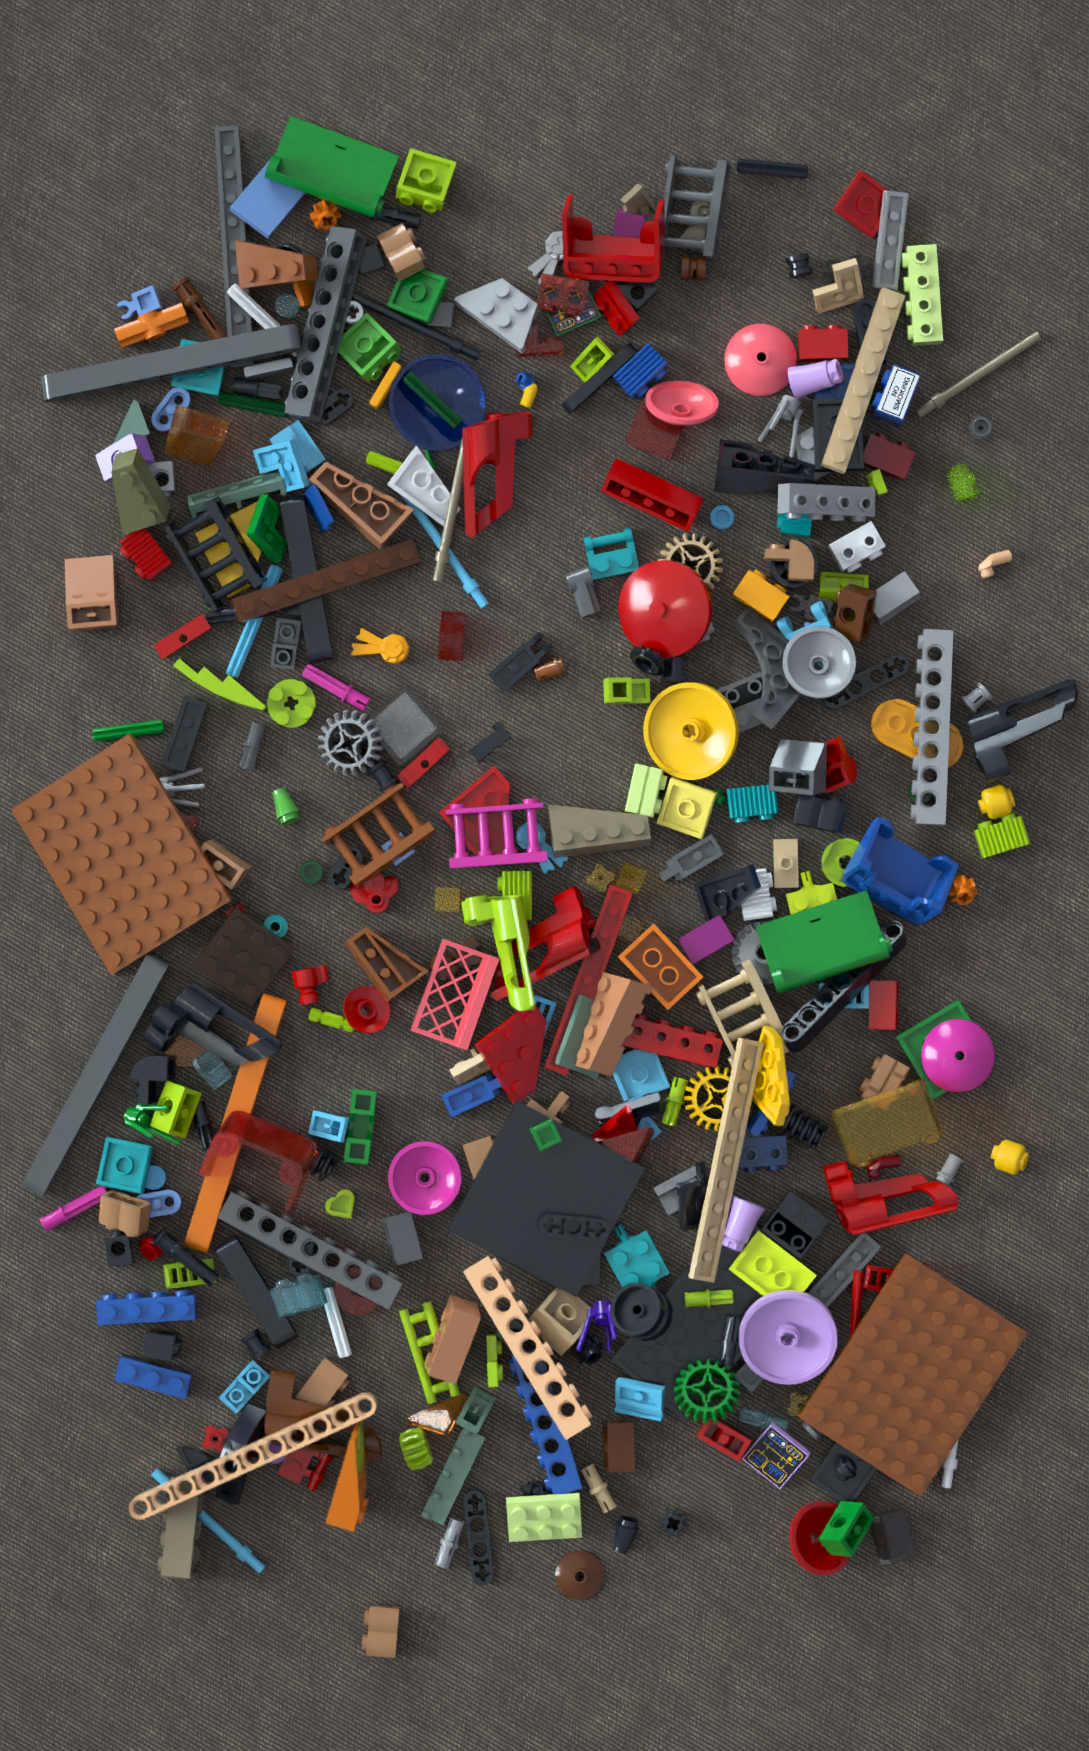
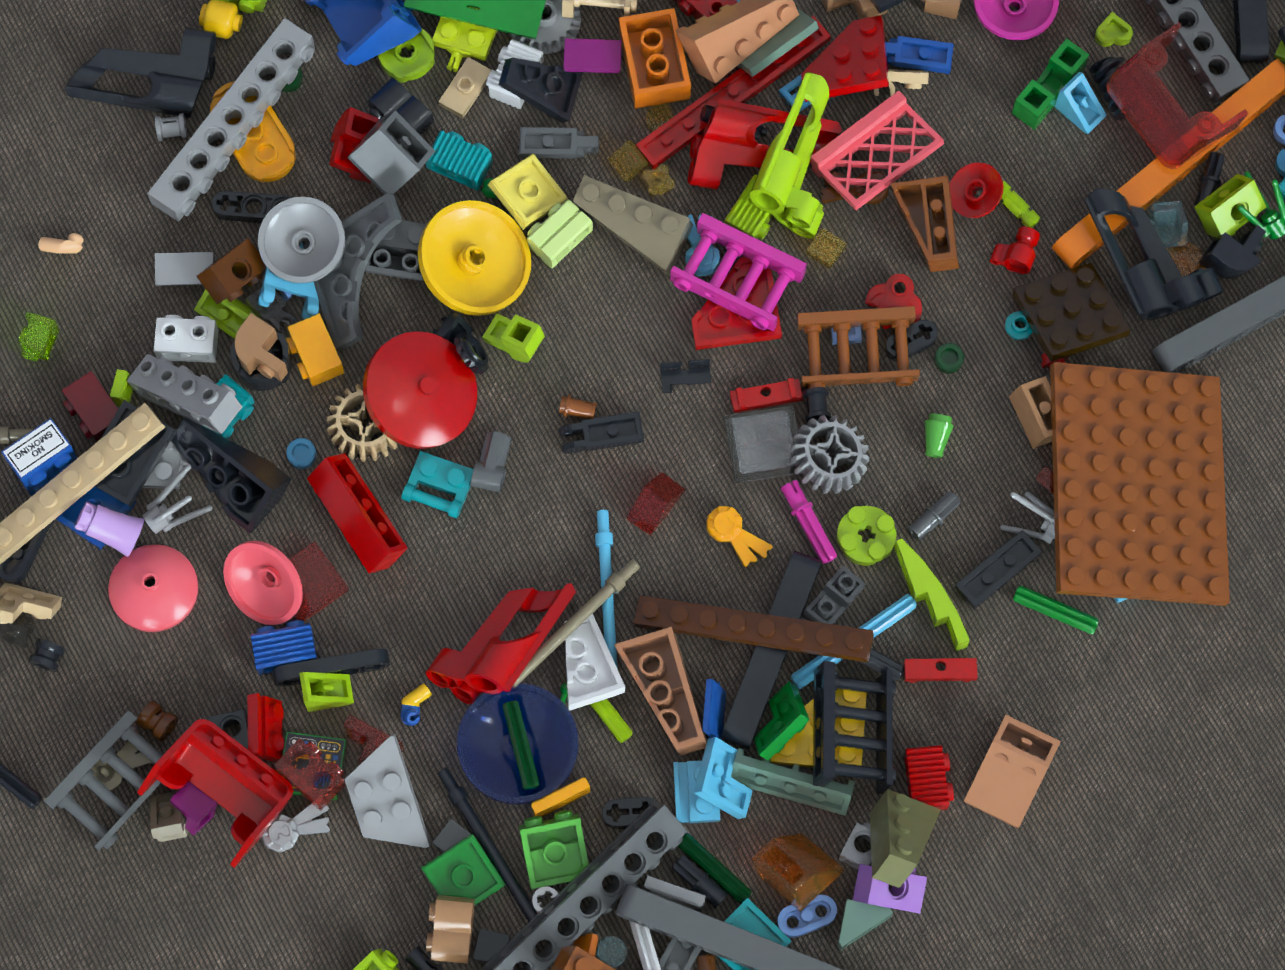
camera: 150 degrees left, 15 degrees down
(822, 344) = (79, 560): red brick -> none

